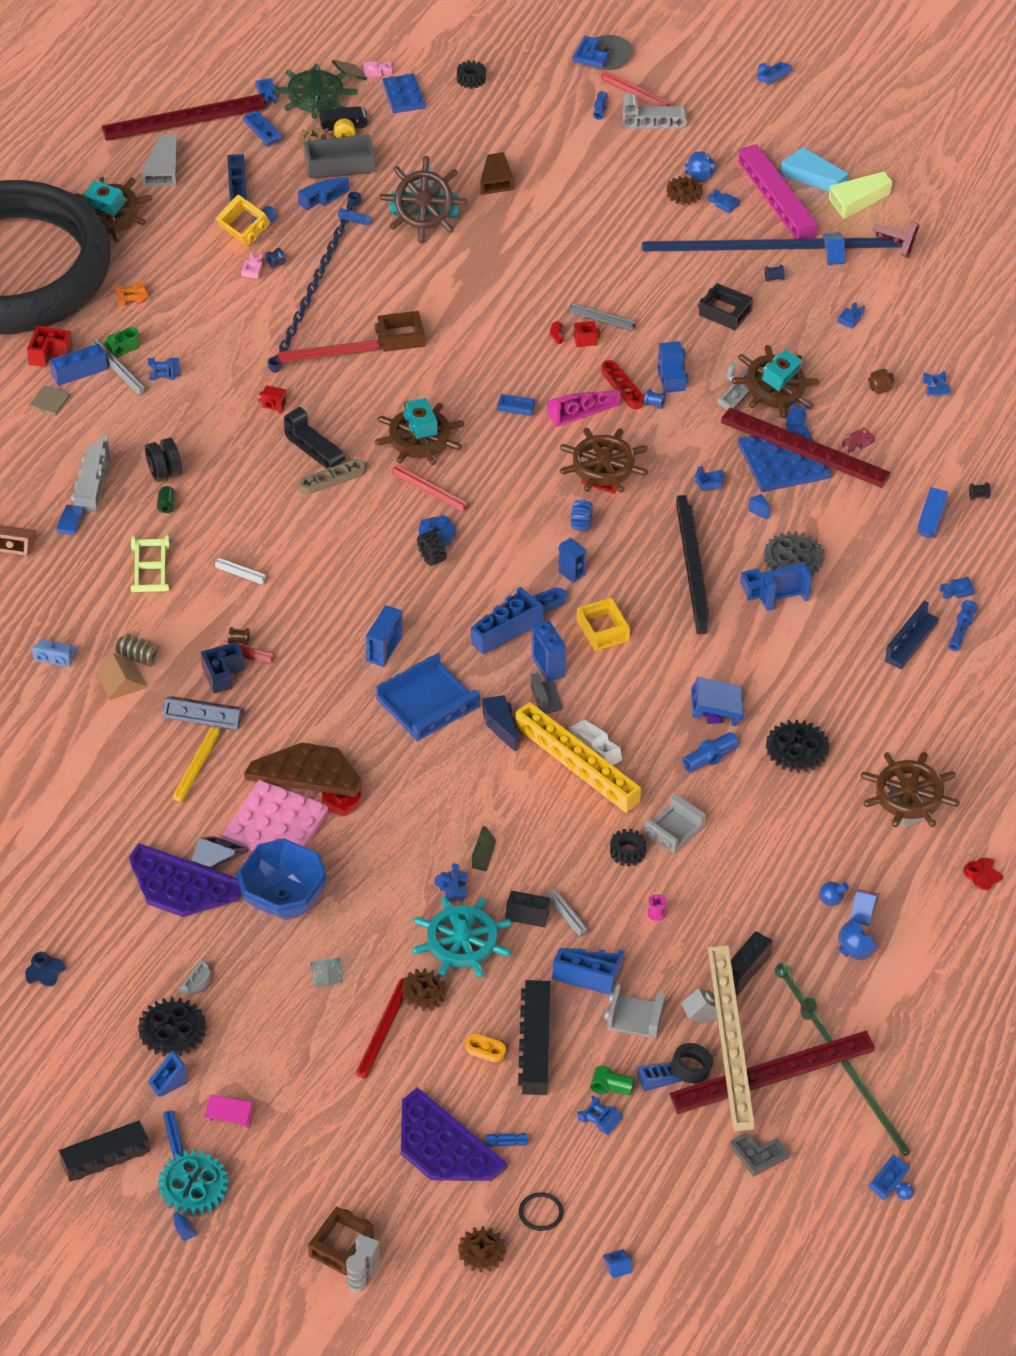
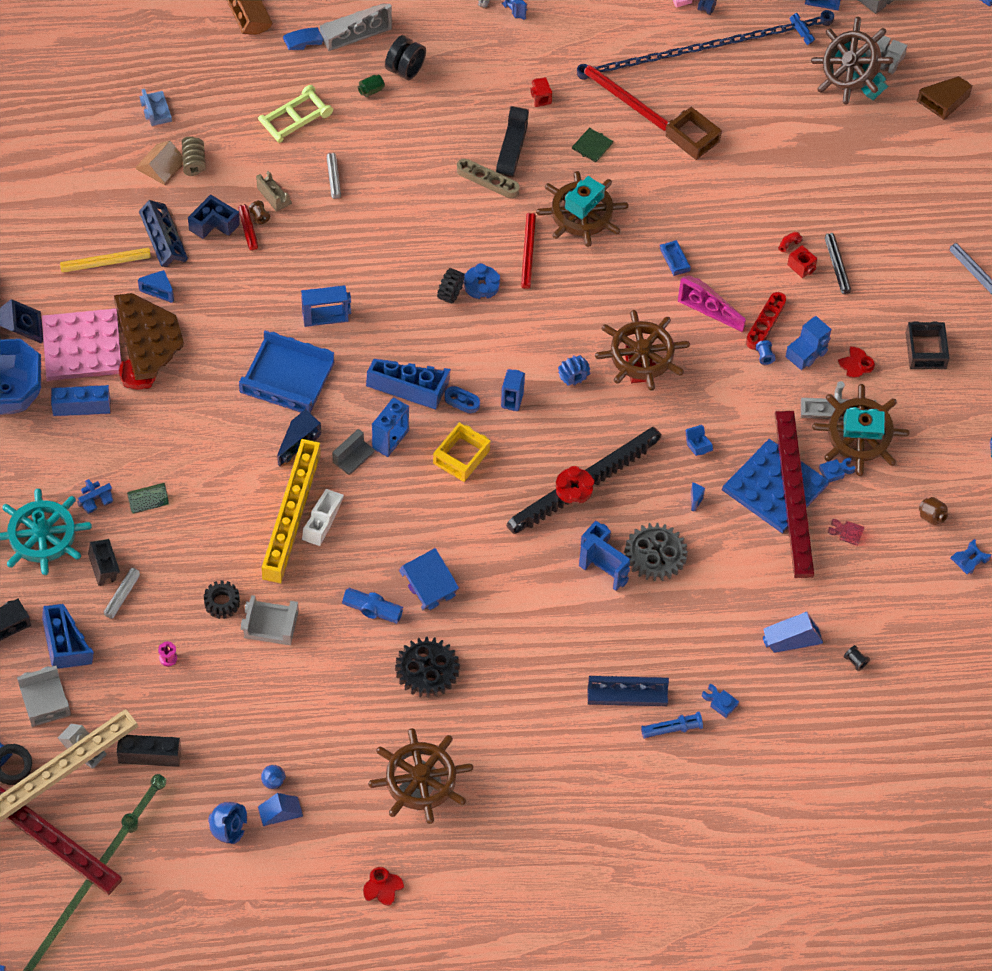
camera: 55 degrees right, 10 degrees up
(223, 619) = (272, 192): none -> dark tan hinge
(262, 738) = (157, 286): none -> blue slope
(343, 846) = (80, 400): none -> blue brick
(354, 398) = (592, 145): none -> clear green piece
(699, 558) = (578, 476): none -> red plate
(706, 354) = (855, 363): none -> red plate

